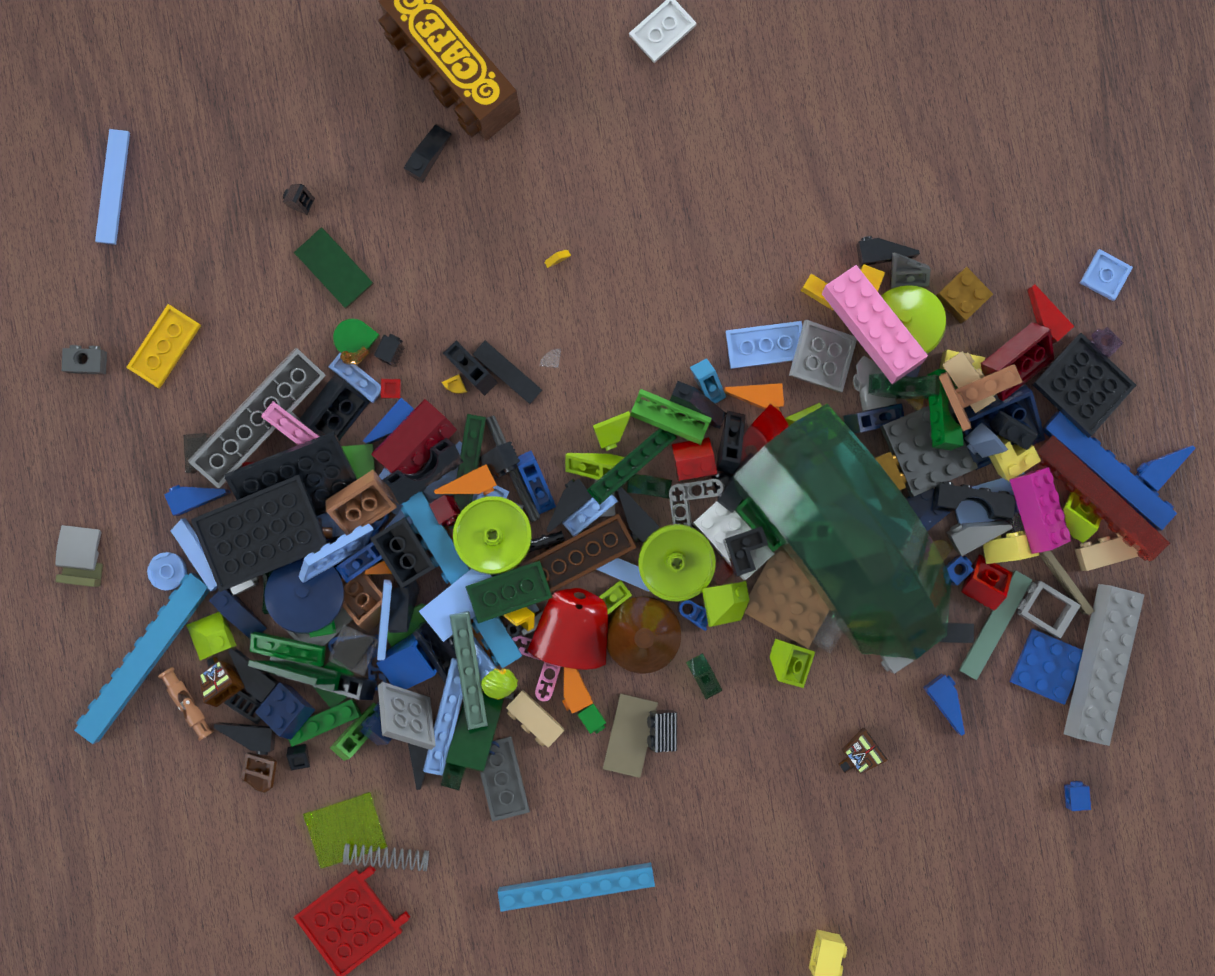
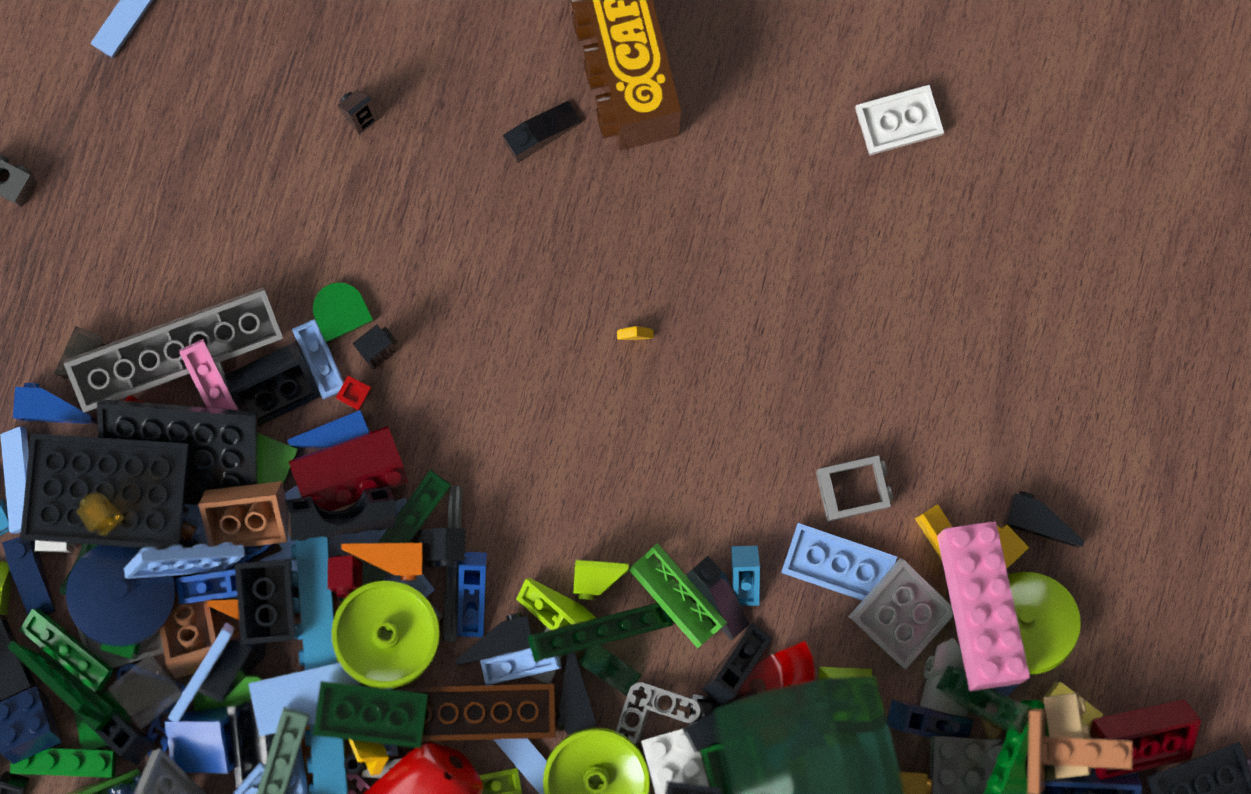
camera: 25 degrees right, 5 degrees down
(163, 346) = (107, 207): yellow tile -> none
(263, 549) = (99, 514): none -> clear yellow slope
(333, 268) = (358, 213): dark green tile -> none
(354, 358) = (328, 334): clear orange arm -> none
(455, 385) = (434, 426): yellow tile -> none
(470, 368) = (462, 415): black slope -> none
(507, 372) = (505, 442): black tile -> none
(546, 541) = (449, 674): black pin -> none
(551, 359) = (567, 452): clear tile -> none
(694, 460) = (681, 663): red slope -> none
(737, 303) = (827, 491): none -> light grey window
(759, 395) = (800, 623): orange slope -> none
(908, 272) = (1058, 561): dark grey wing -> none
(964, 295) = (1114, 624): pearl gold brick -> none
(1048, 314) = (1209, 701): red slope -> none

